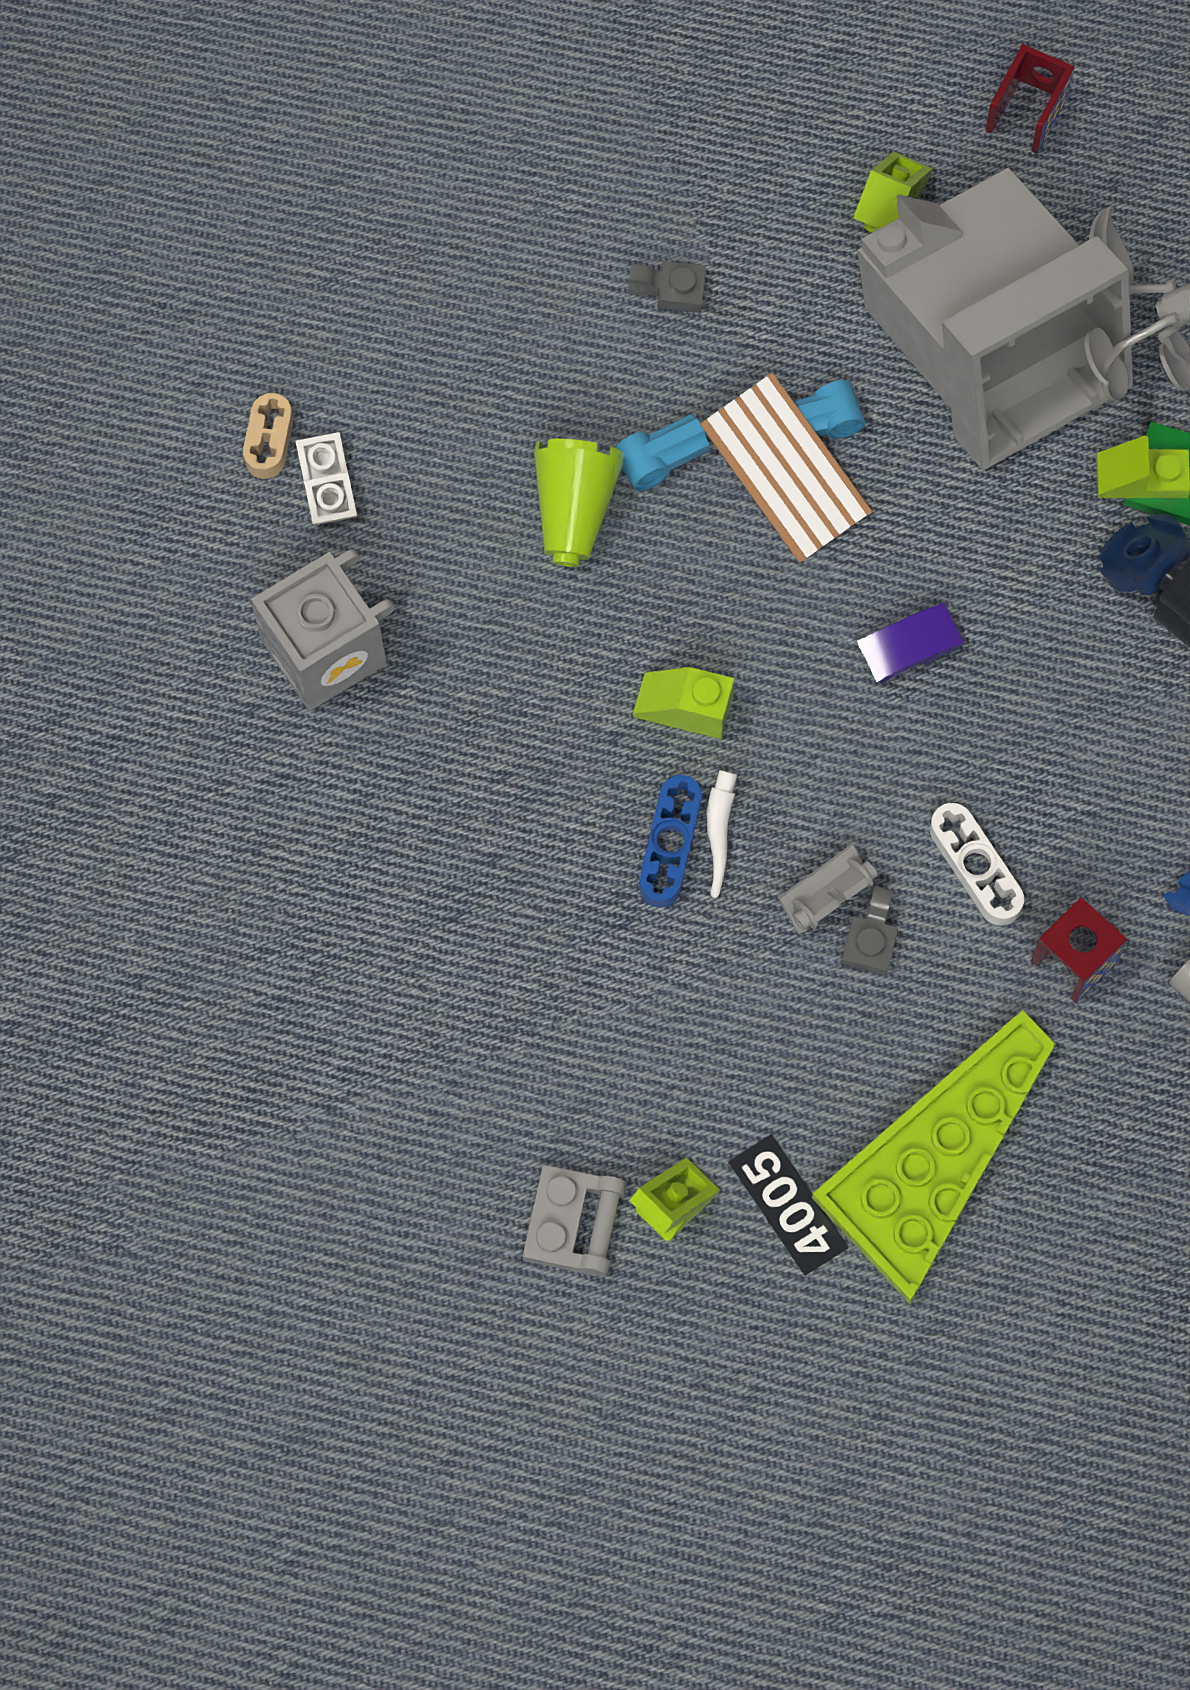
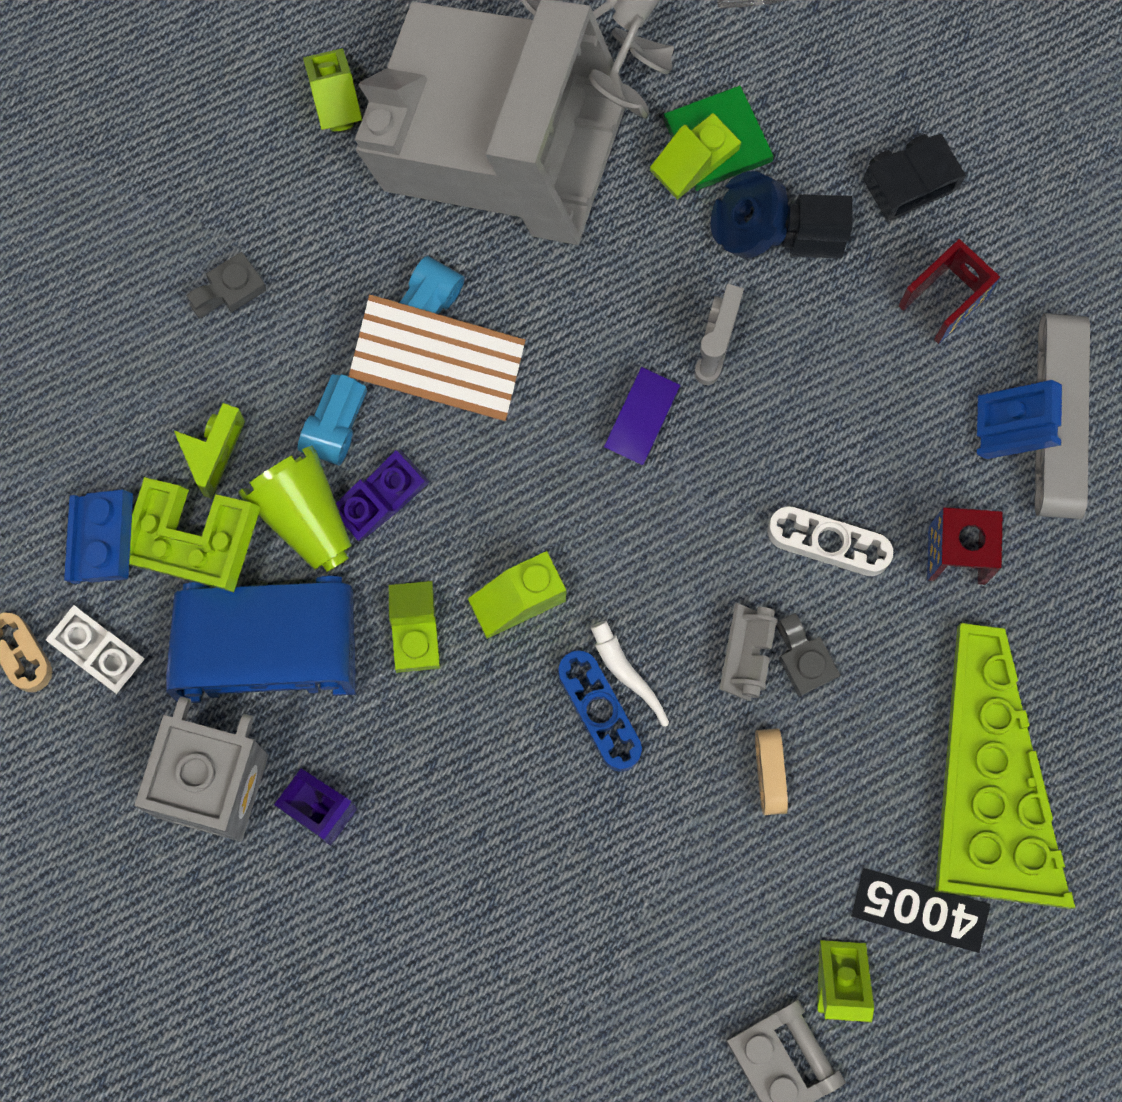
camera: 45 degrees left, 5 degrees up
(388, 733) = (316, 806): none -> dark purple slope
(402, 396) = (98, 537): none -> blue plate
(442, 442) = (205, 559): none -> lime plate
(458, 571) = (262, 639): none -> blue windscreen
(542, 404) = (209, 458): none -> lime slope
(583, 659) = (414, 626): none -> lime slope
(644, 540) = (380, 495): none -> dark purple slope
(762, 996) = (771, 771): none -> tan beam
(1029, 627) = (718, 335): none -> light grey plate

